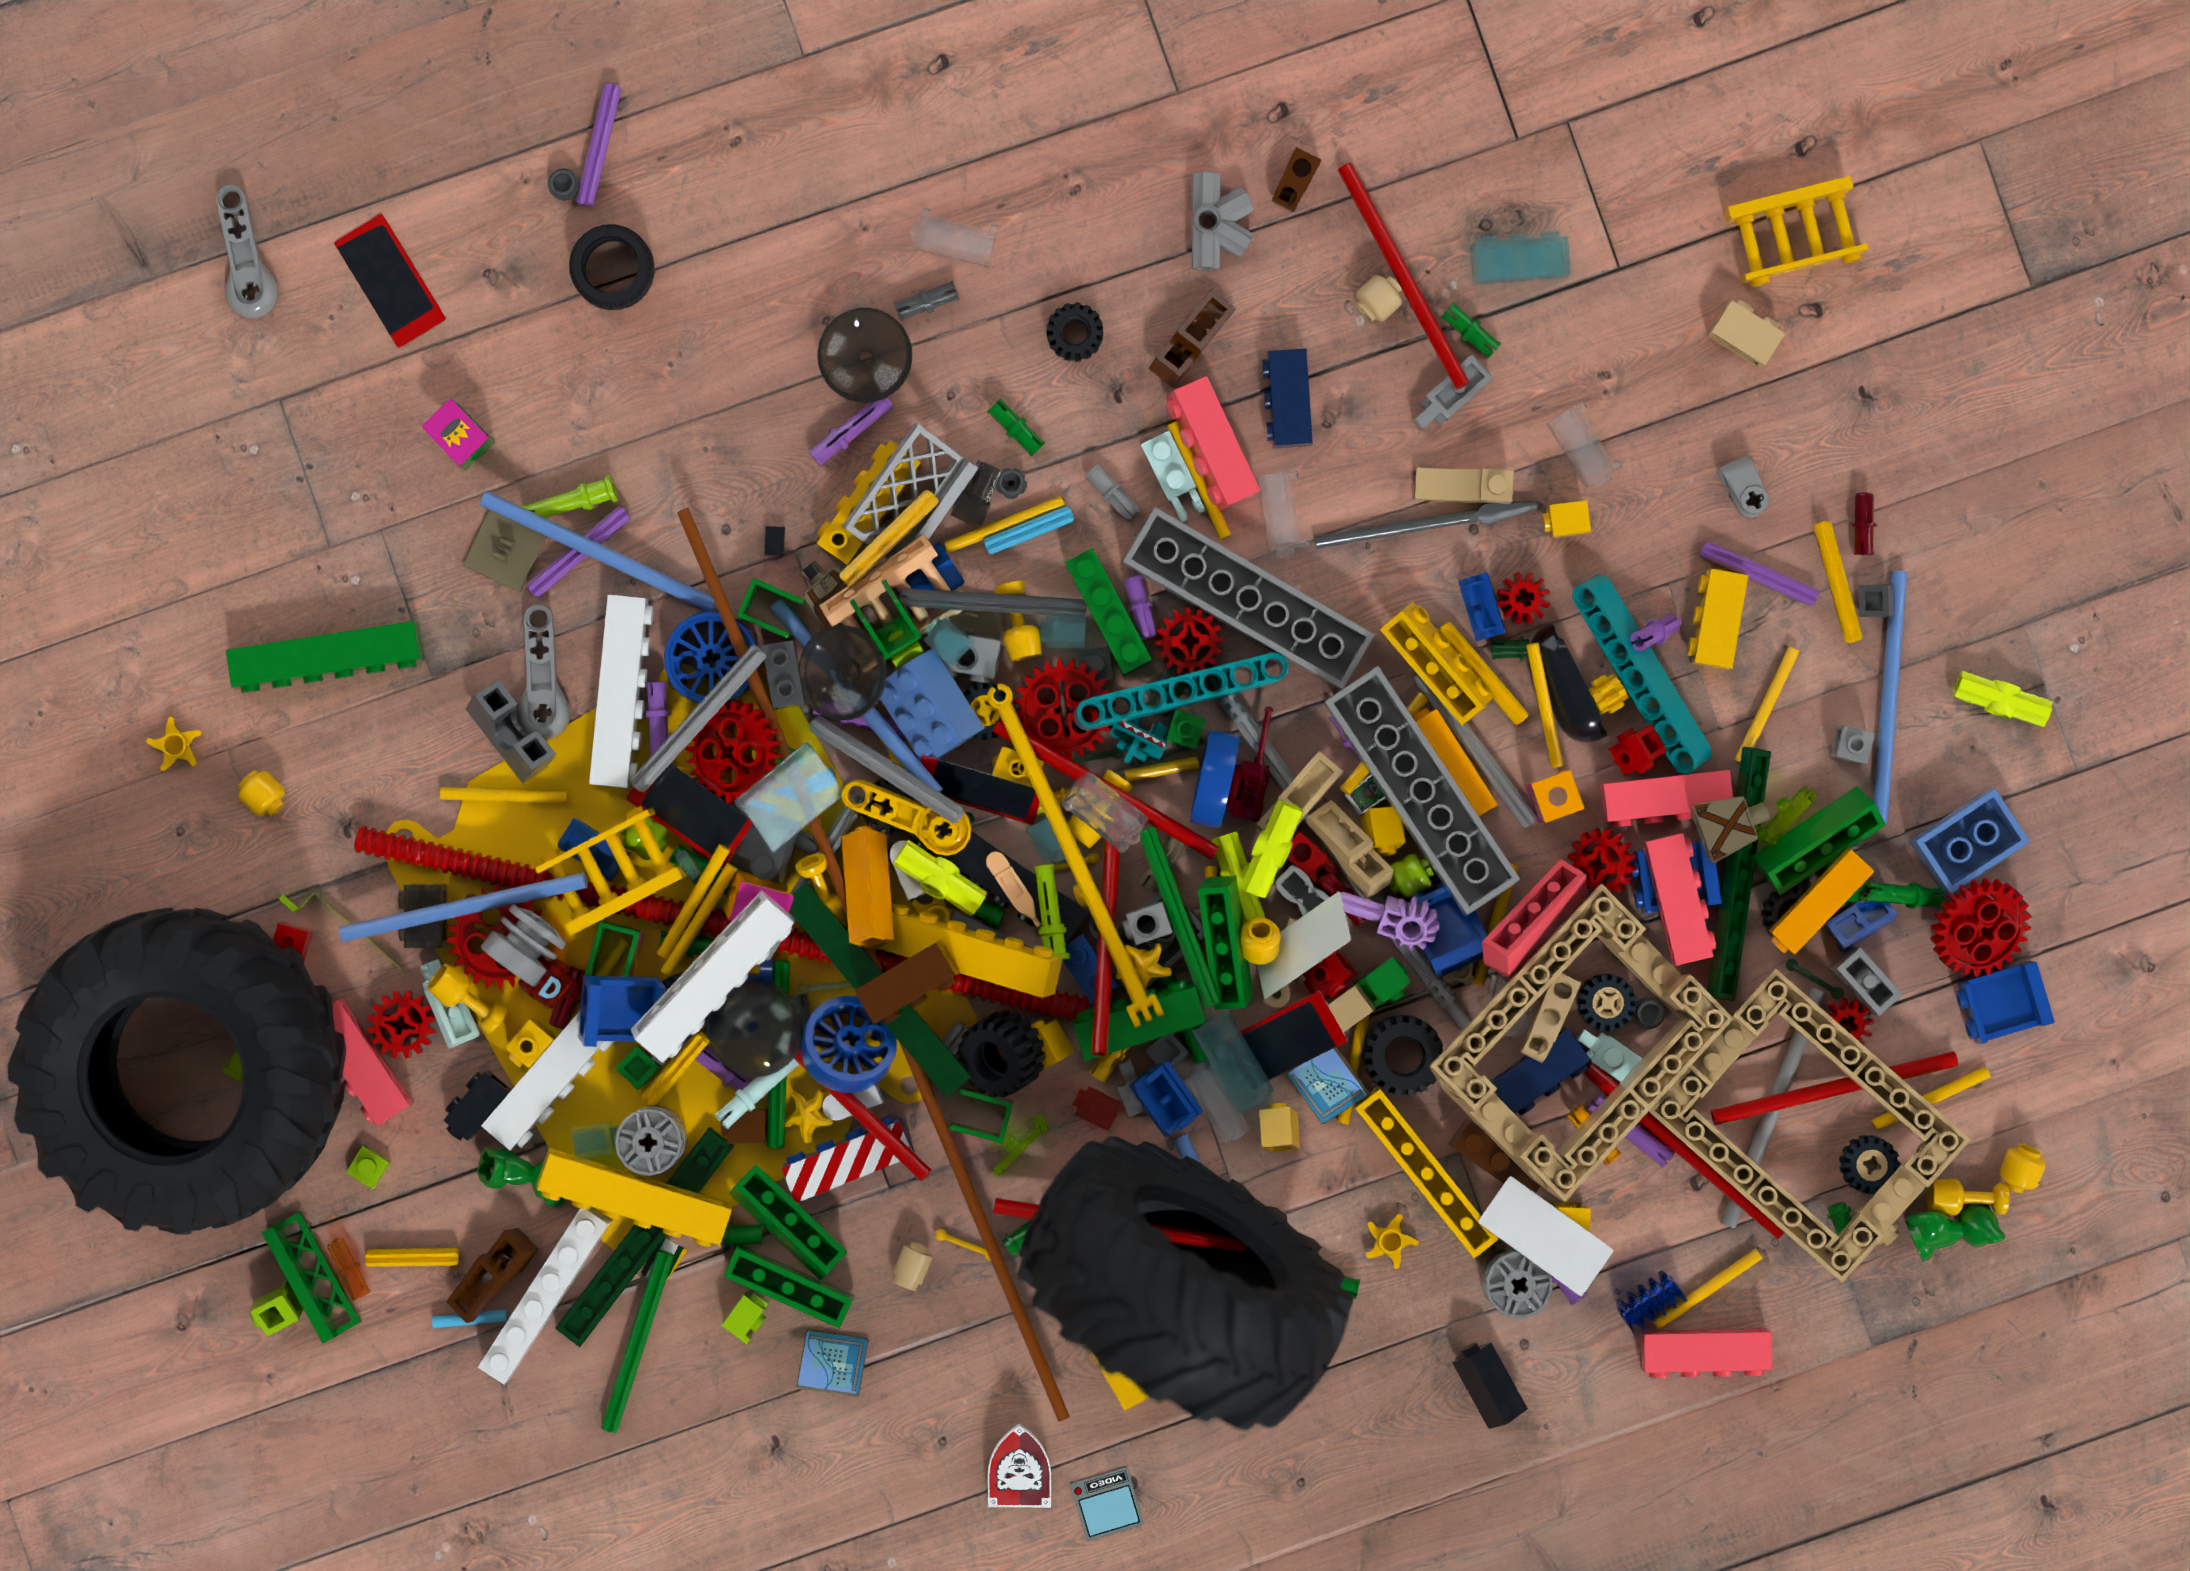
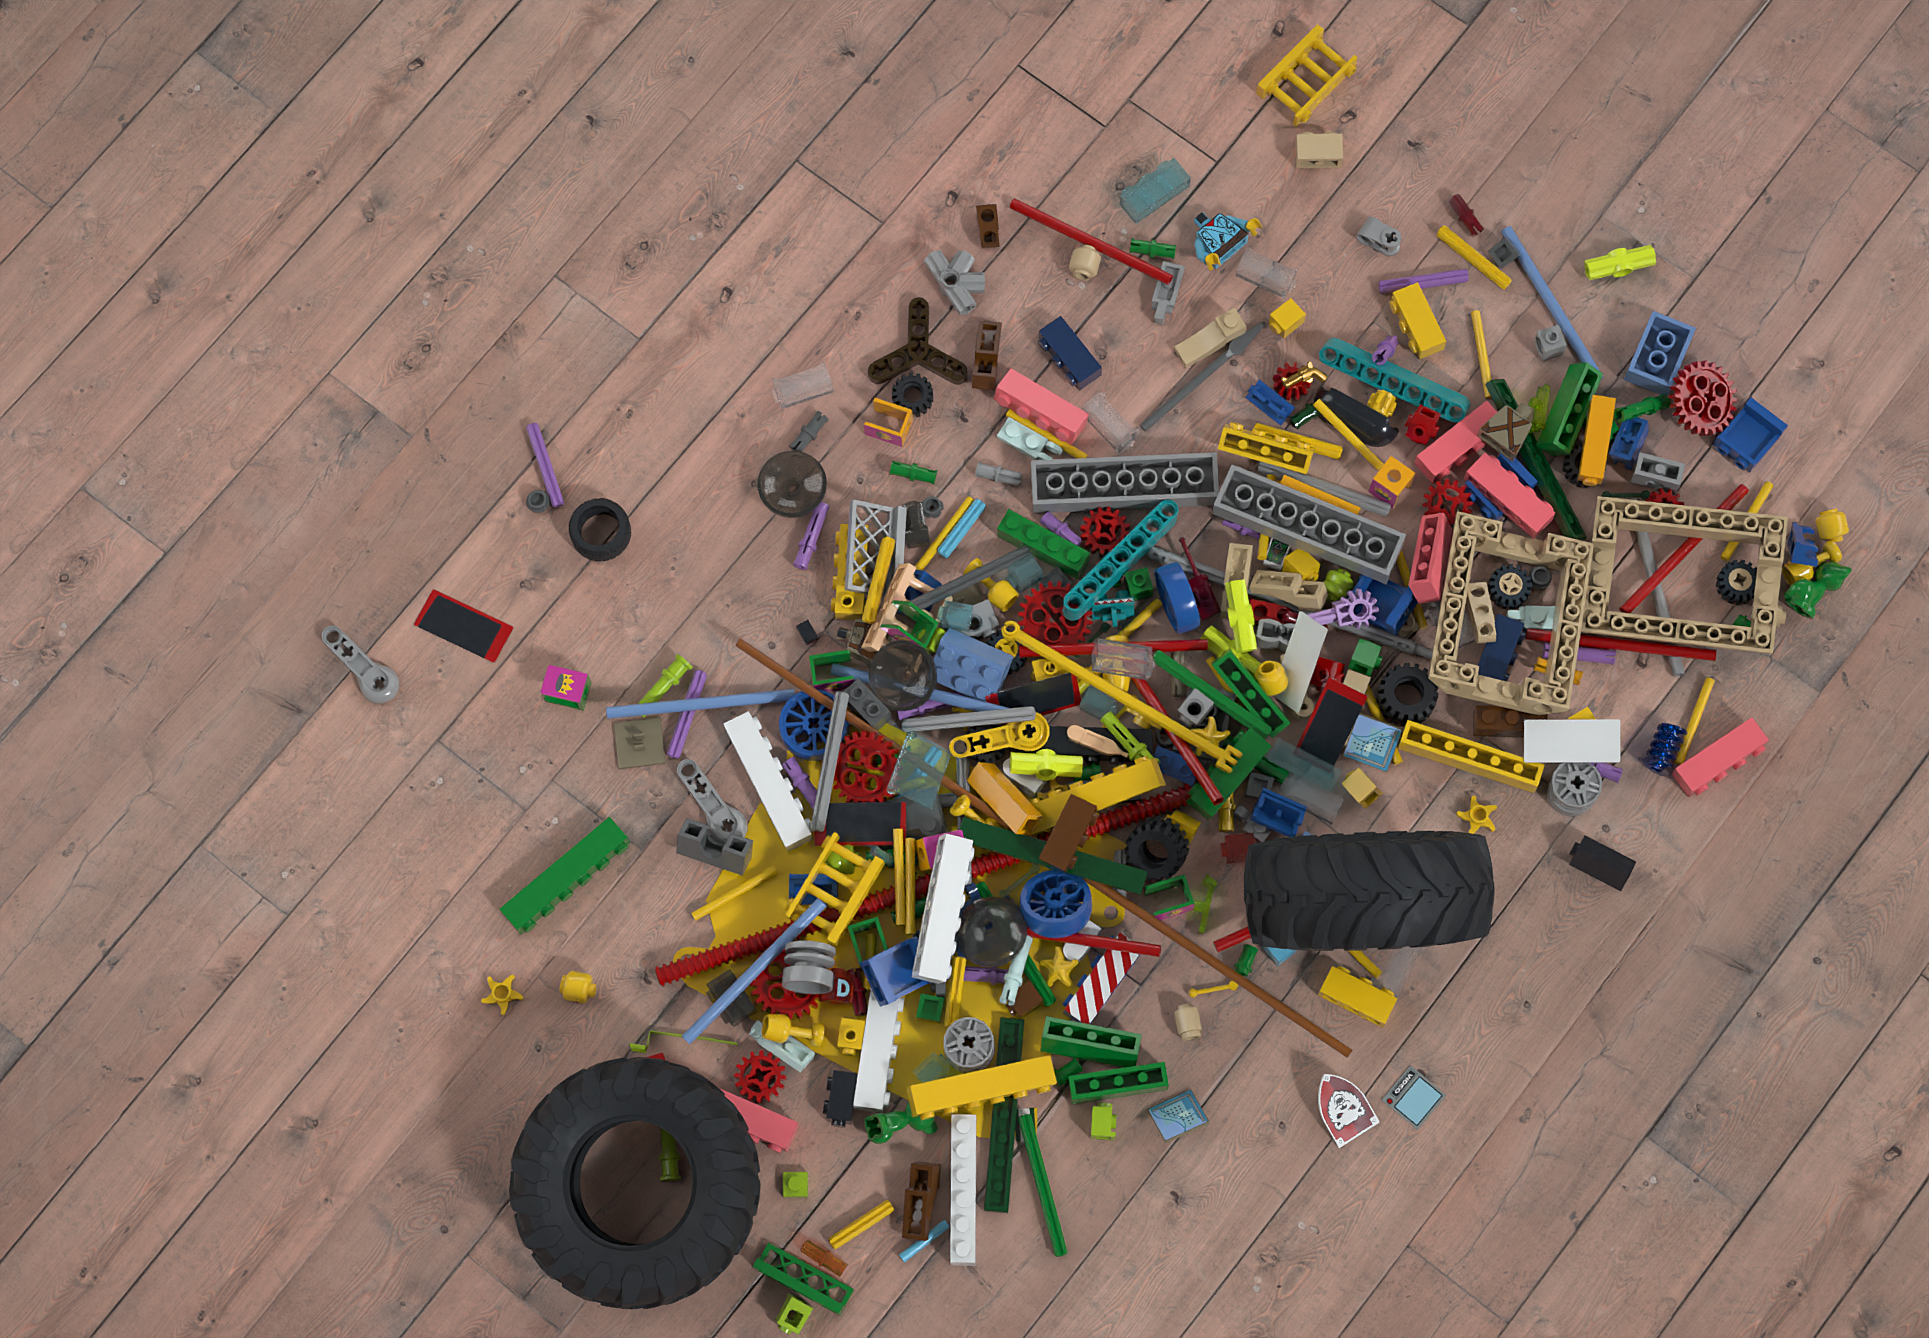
camera: 25 degrees left, 15 degrees down
(1038, 370) = (894, 411): none -> light orange piece
(1102, 284) = (925, 357): none -> dark brown piece
(1540, 605) = (1304, 374): none -> pearl gold piece
(1557, 370) = (1221, 237): none -> torso
(1969, 1173) = (1802, 550): none -> blue hinge

